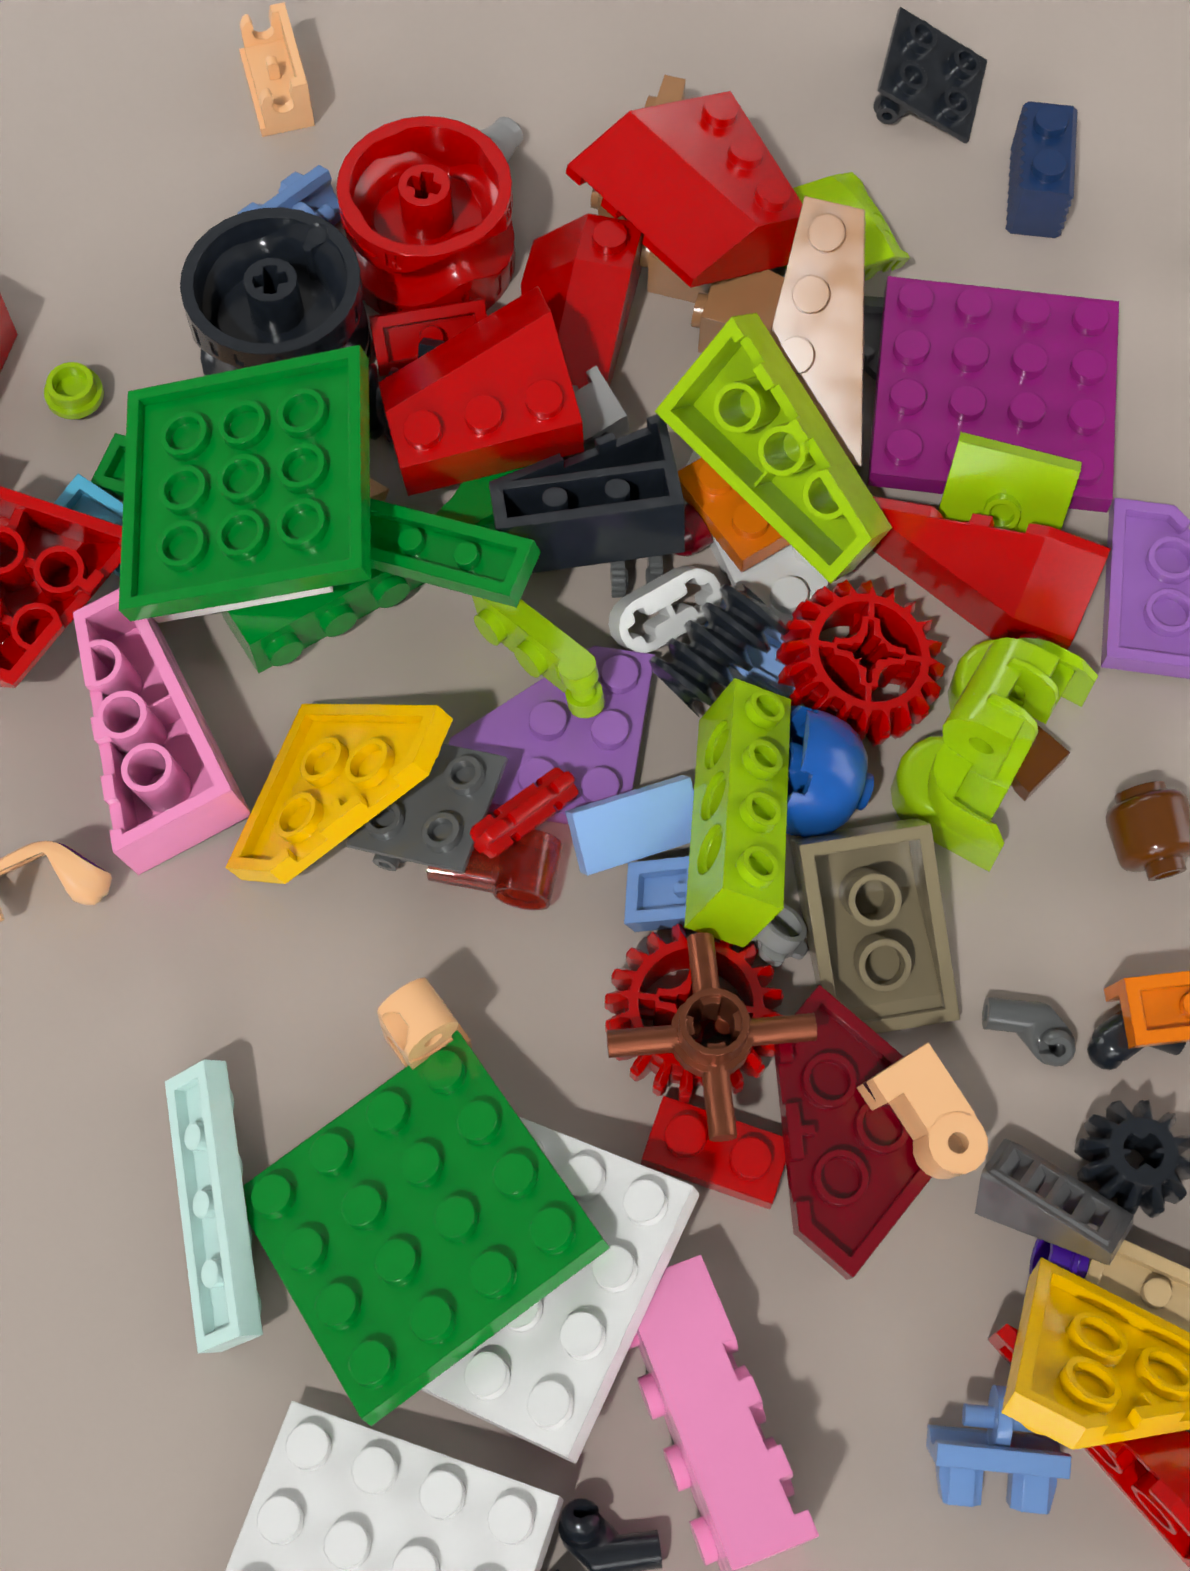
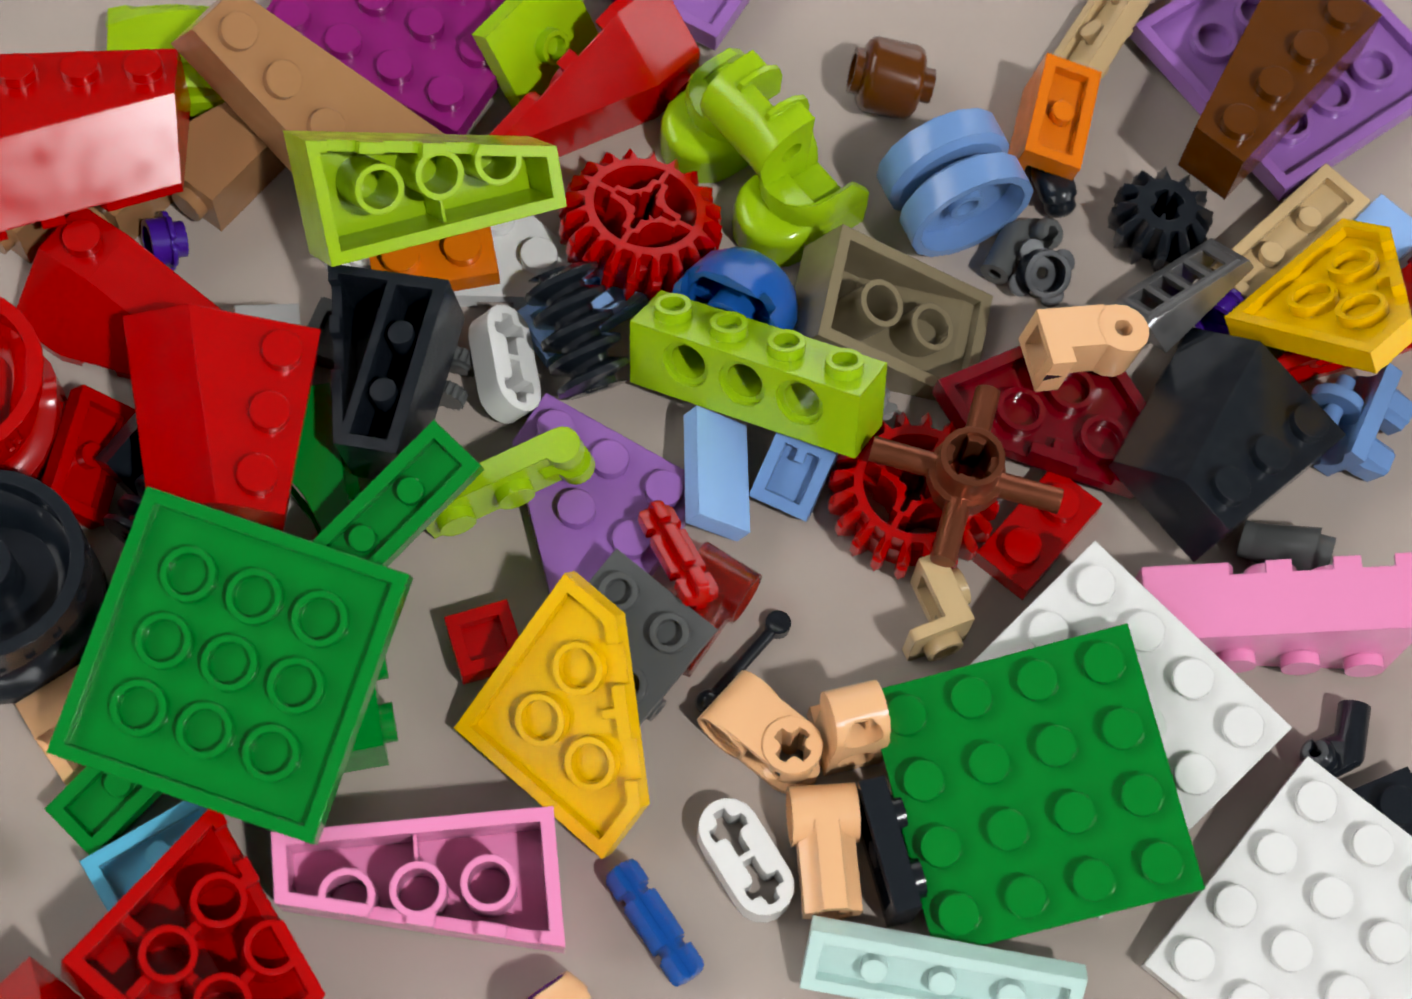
camera: 75 degrees left, 0 degrees up
(184, 935) = (654, 922): none -> blue axle
(281, 1001) = (759, 852): none -> white beam
(297, 1121) = (897, 878): none -> black plate
(319, 1048) = (825, 831): none -> light nougat piece
(390, 684) = (481, 639): none -> red plate
(395, 950) = (756, 725): none -> light nougat piece
(514, 940) = (776, 627): none -> black hinge
(588, 1082) = (945, 603): none -> tan bracket
(658, 309) = (165, 239): none -> dark purple plate
(806, 1419) = (1275, 541): none -> dark grey cone
(890, 1297) = (1220, 438): none -> black wedge
(995, 1071) = (1058, 273): none -> black plate
(1051, 923) = (954, 182): none -> medium blue wheel

